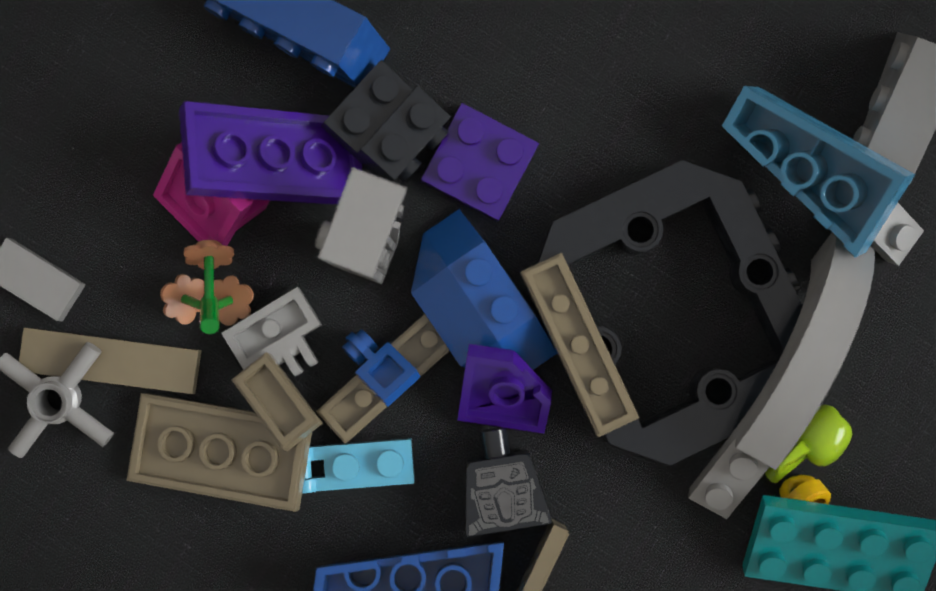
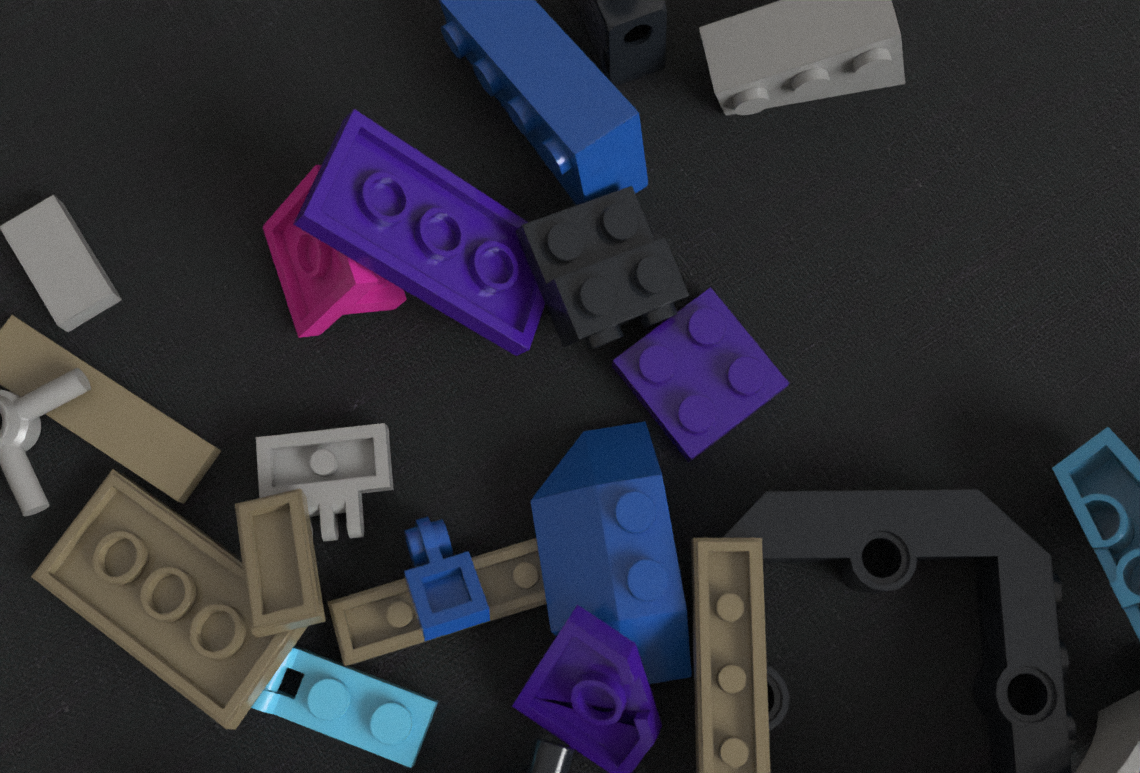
camera: 25 degrees right, 10 degrees down
(214, 299) = (250, 381): nougat plant -> none
(363, 227) = (503, 378): light grey wedge -> none

